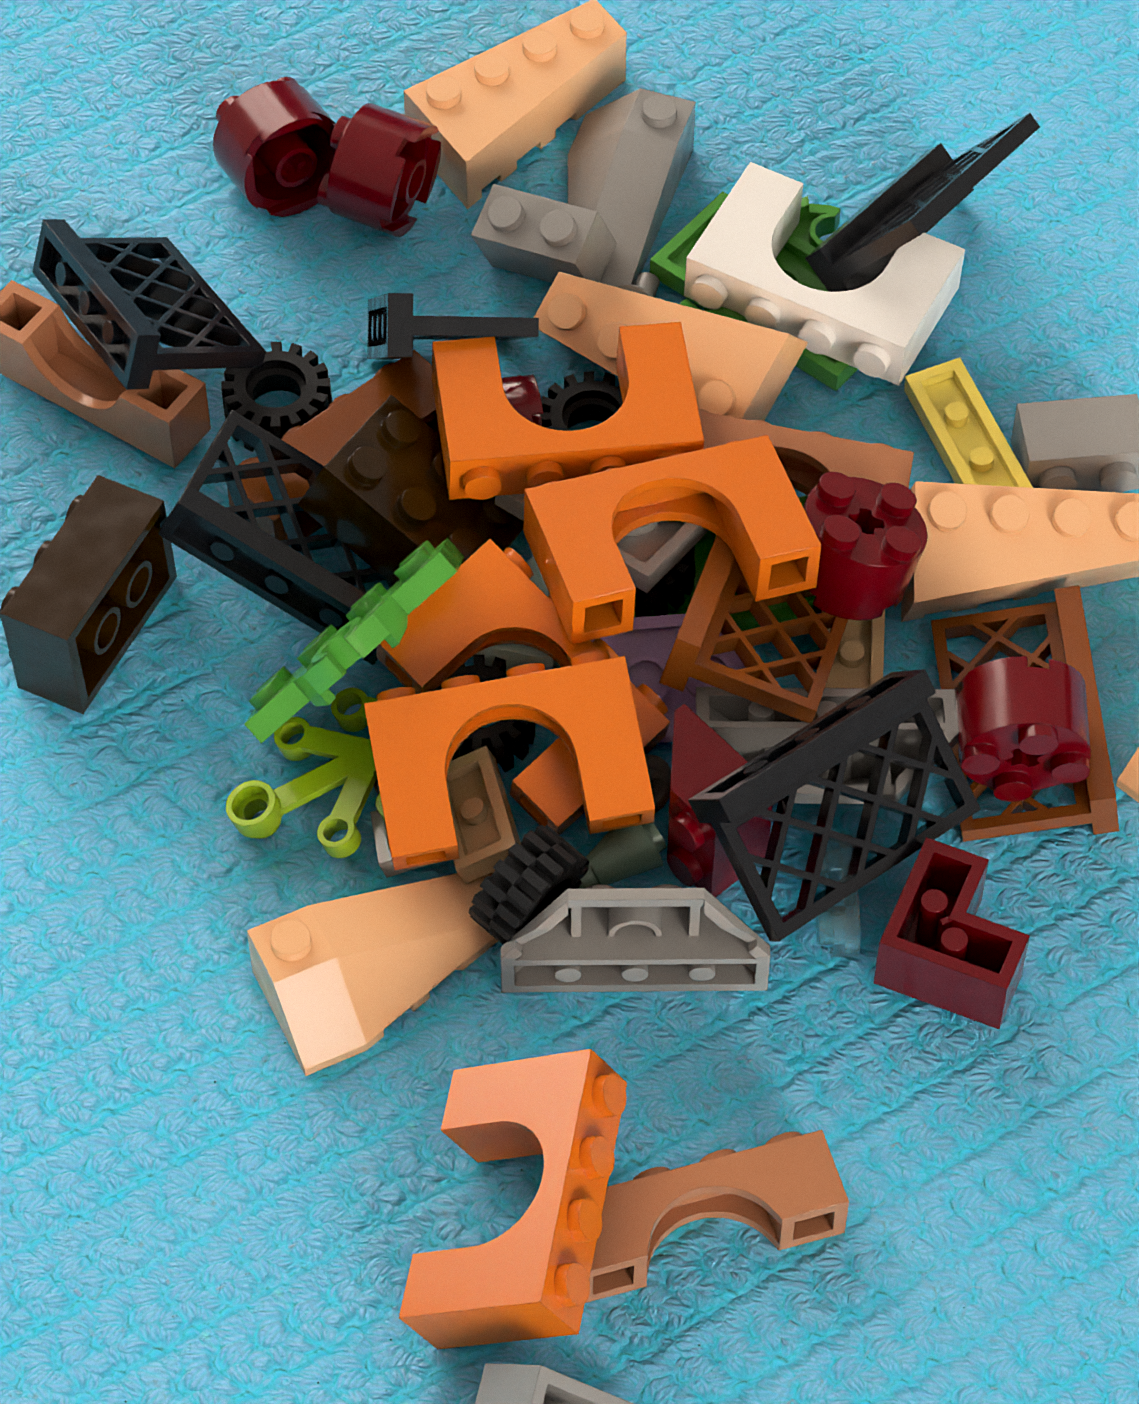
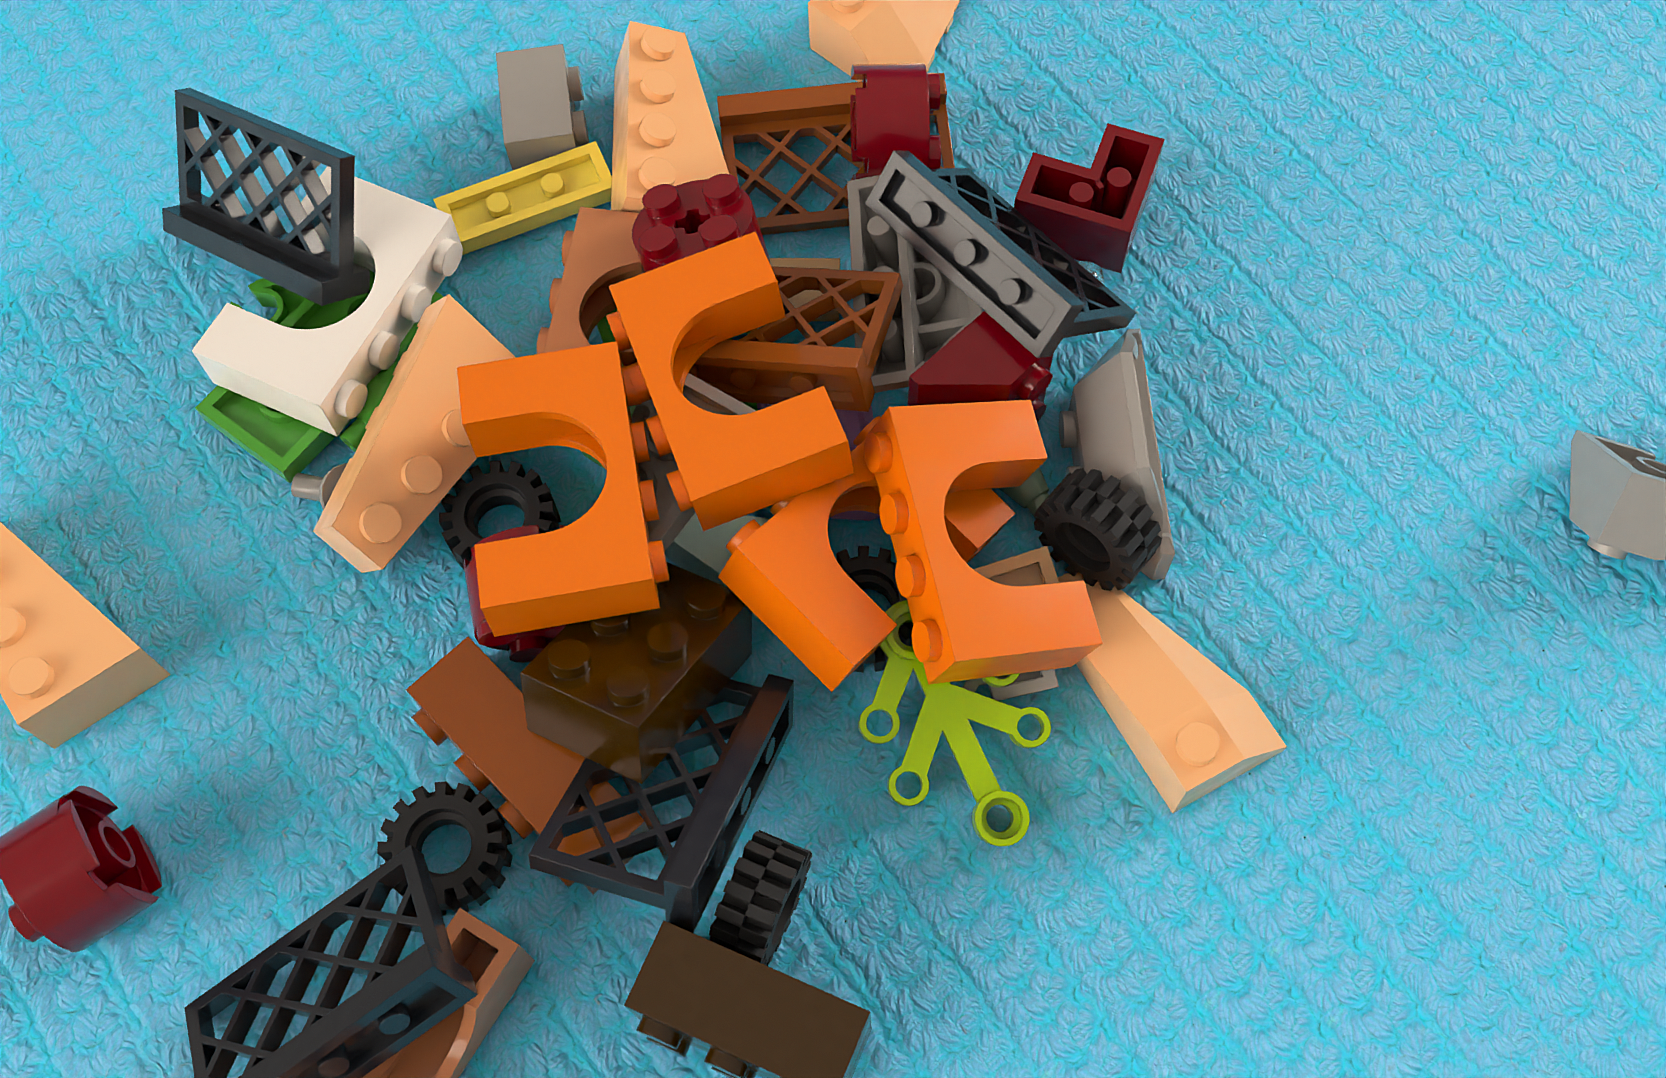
camera: 90 degrees left, 10 degrees up
(192, 606) = (760, 897): none -> black tyre
(373, 618) = (846, 693): bright green plate -> none
(380, 168) = (130, 747): dark red brick -> none
(394, 327) = (408, 646): black fence -> none
(539, 1269) = (1530, 501): orange arch -> none
(542, 236) = (252, 568): light grey brick -> none
(629, 170) = (151, 506): light grey wedge -> none
(778, 1188) = (1419, 453): nougat arch -> none

